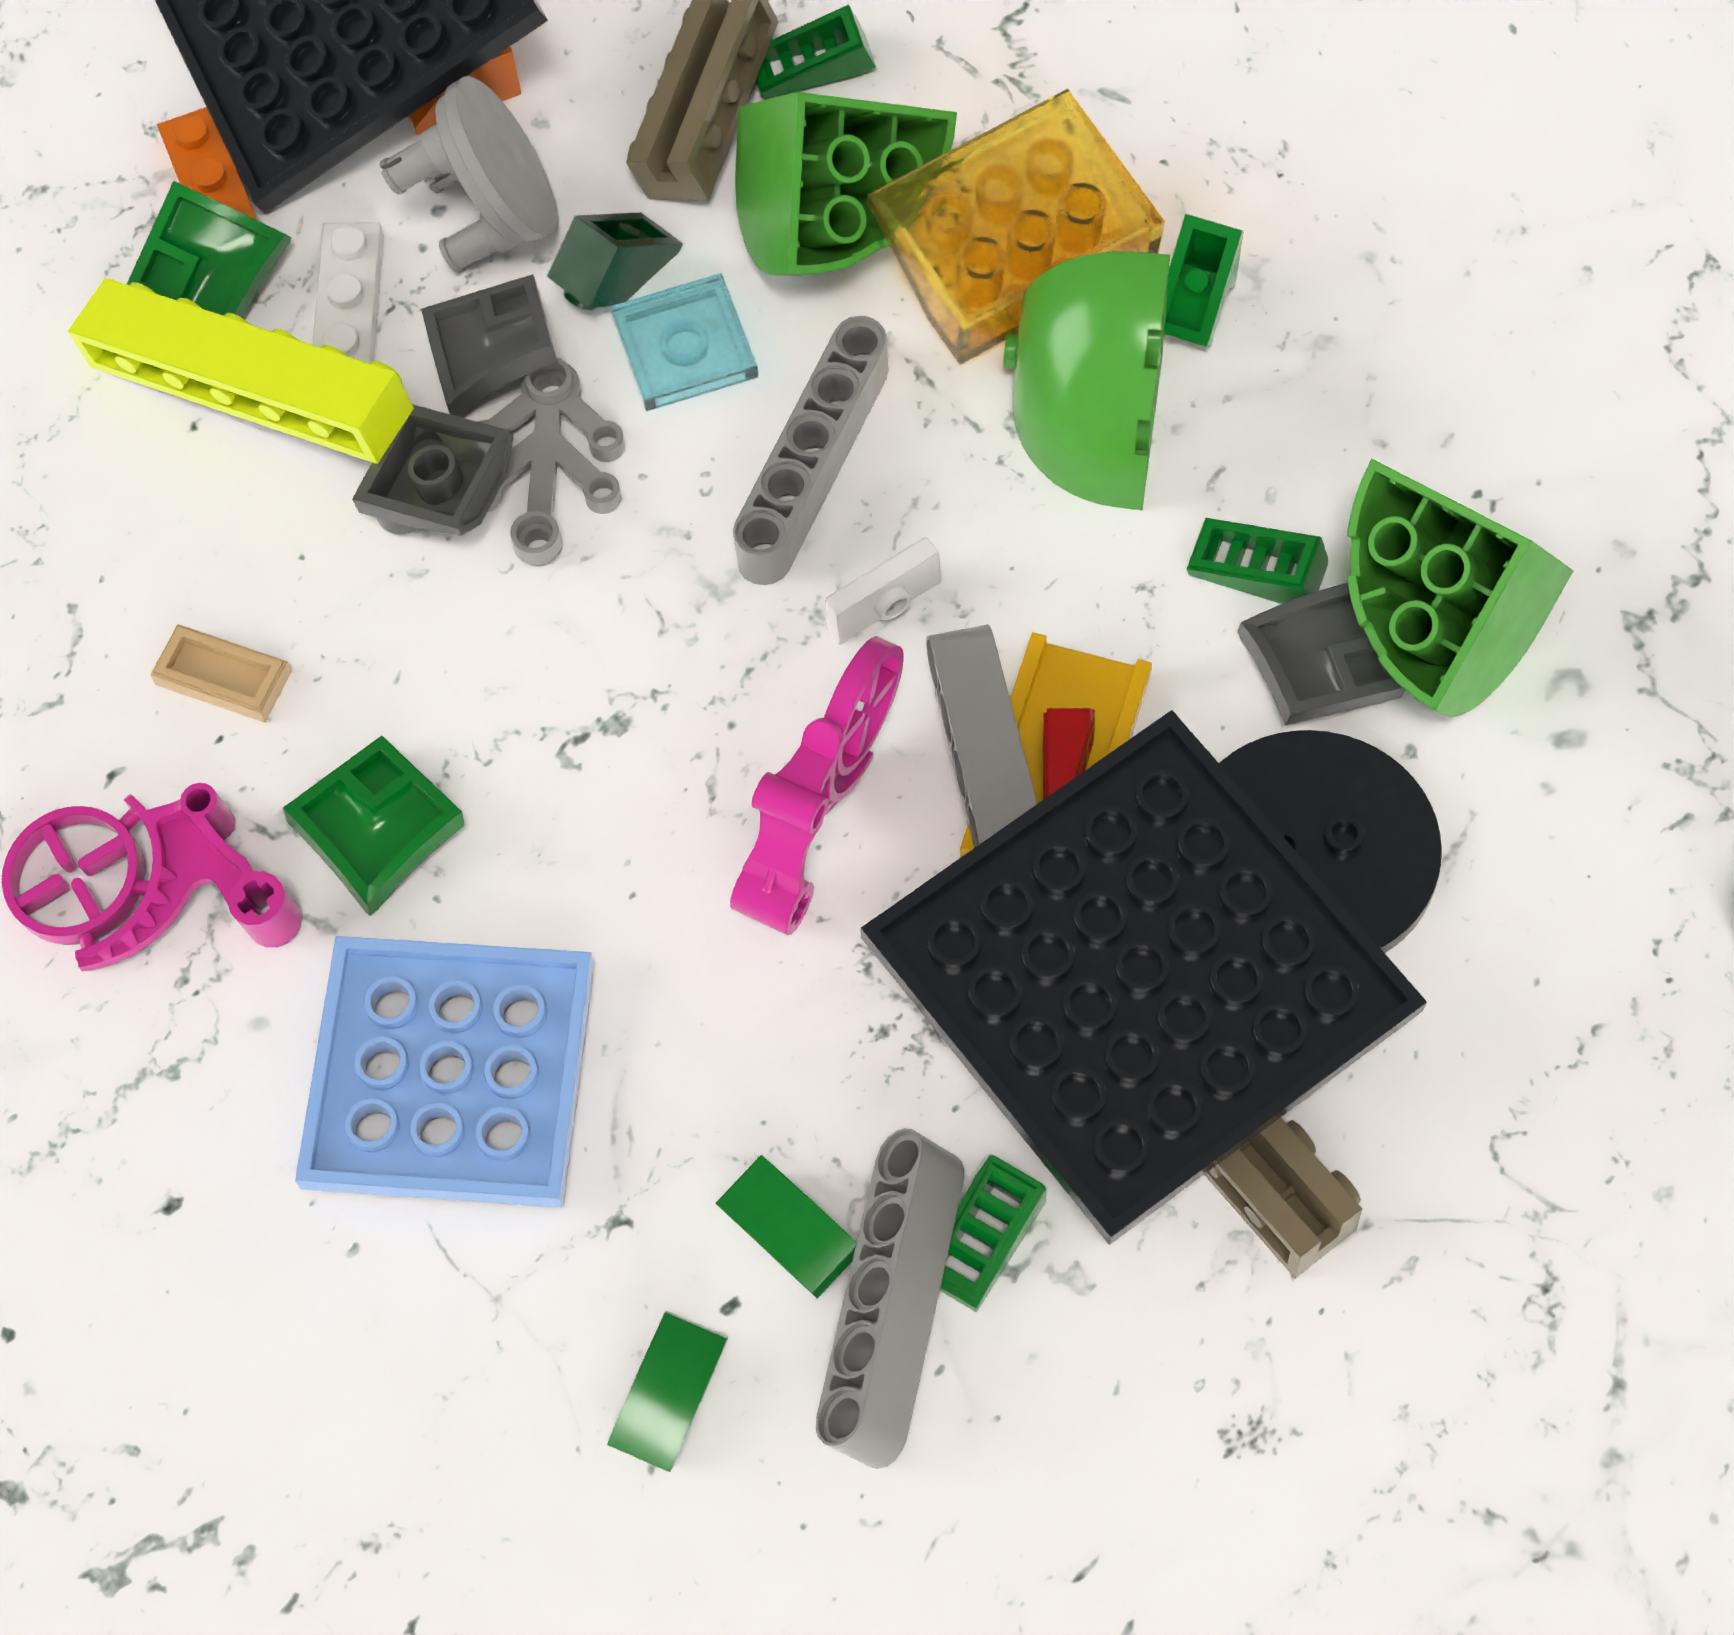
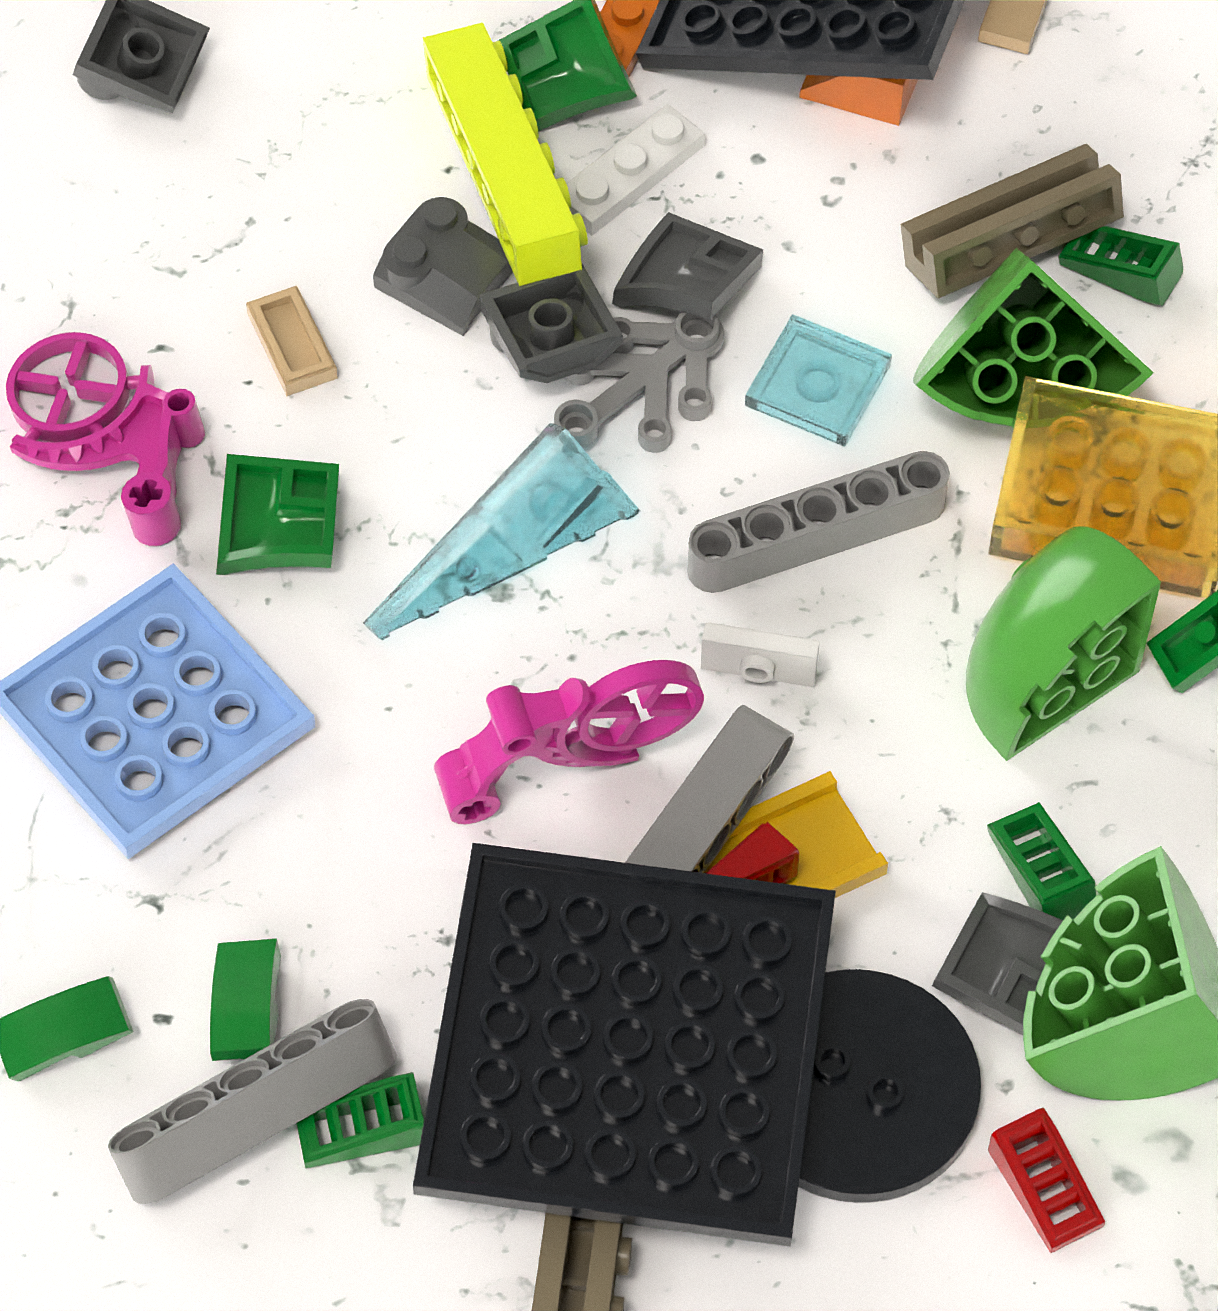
camera: 40 degrees right, 5 degrees down
(283, 504) = (442, 264): none -> dark grey slope
(492, 160) = (801, 149): light grey piece -> none
(575, 638) = (532, 510): none -> clear light blue wedge
(610, 258) = (828, 281): dark green slope -> none
(1495, 807) = (1040, 1128): none -> red slope

